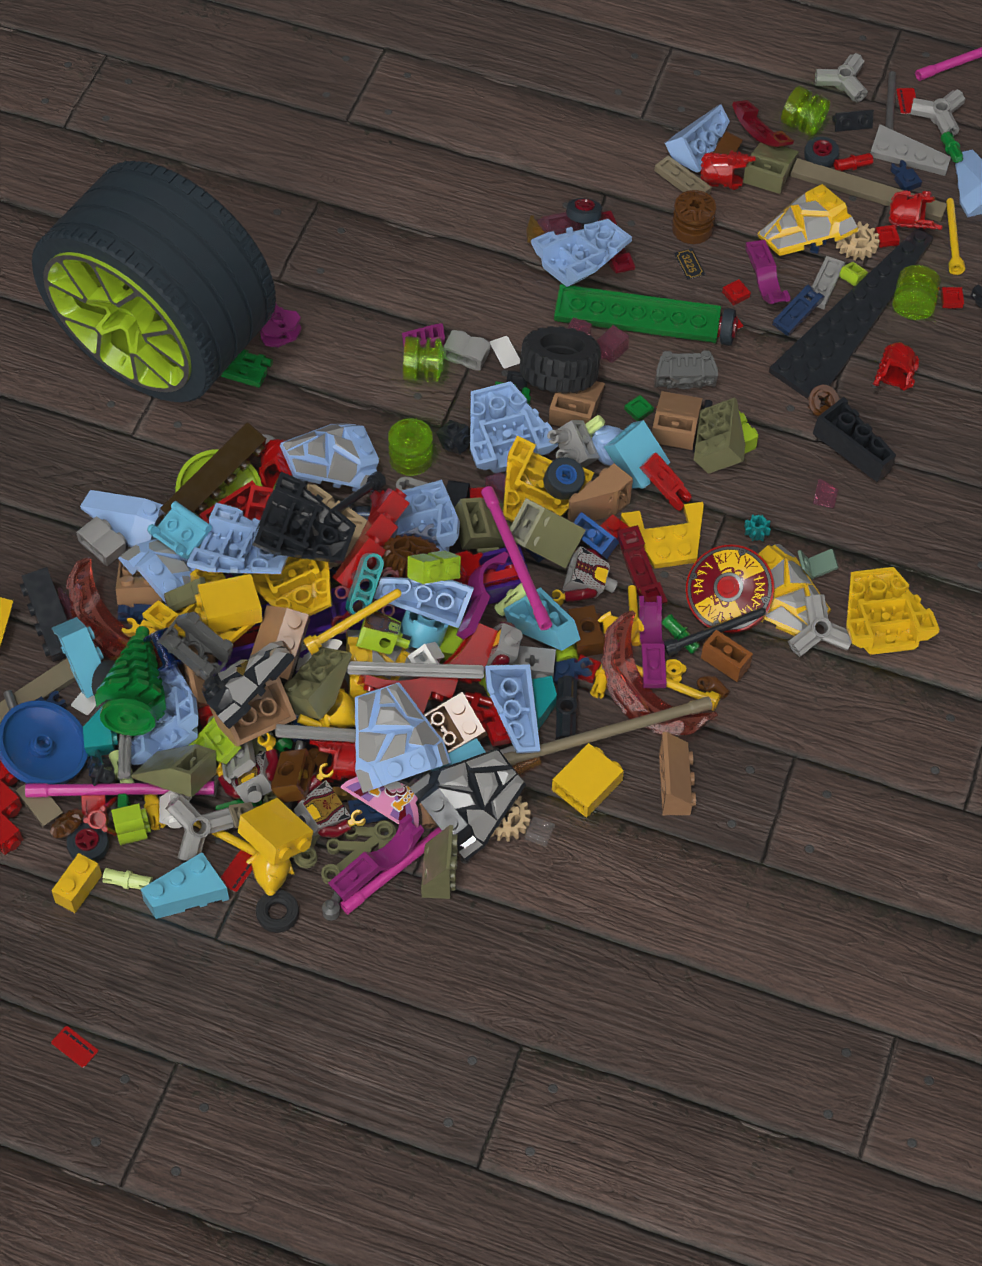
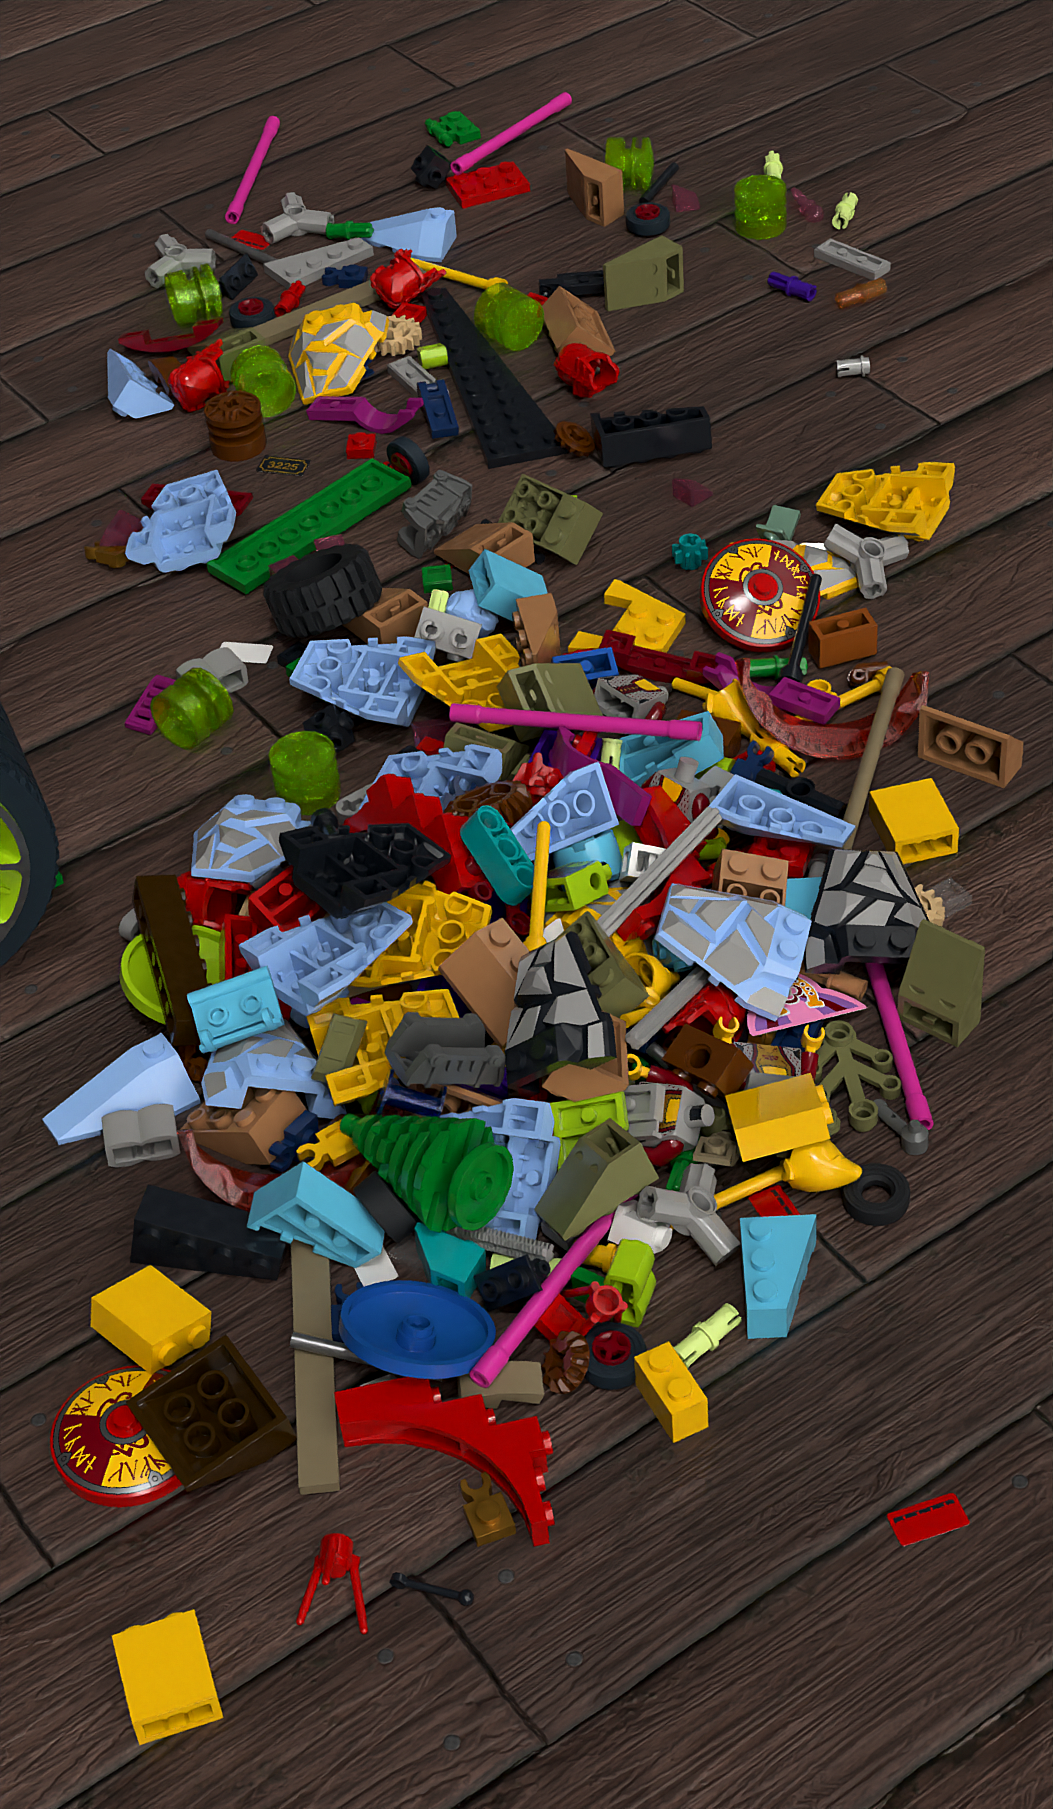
camera: 50 degrees left, 15 degrees down
(229, 603) = (403, 985): yellow brick -> none
(371, 863) = (883, 1051): magenta piece -> none
(434, 567) = (540, 776): lime piece -> none
(563, 486) = (493, 649): black wheel -> none
(584, 210) = (133, 497): black wheel -> none
(666, 481) = (566, 586): red hinge -> none
(680, 176) = (167, 420): dark tan plate -> none
(745, 203) = (265, 375): none -> clear neon green wheel
(945, 335) = (574, 322): none -> medium nougat slope

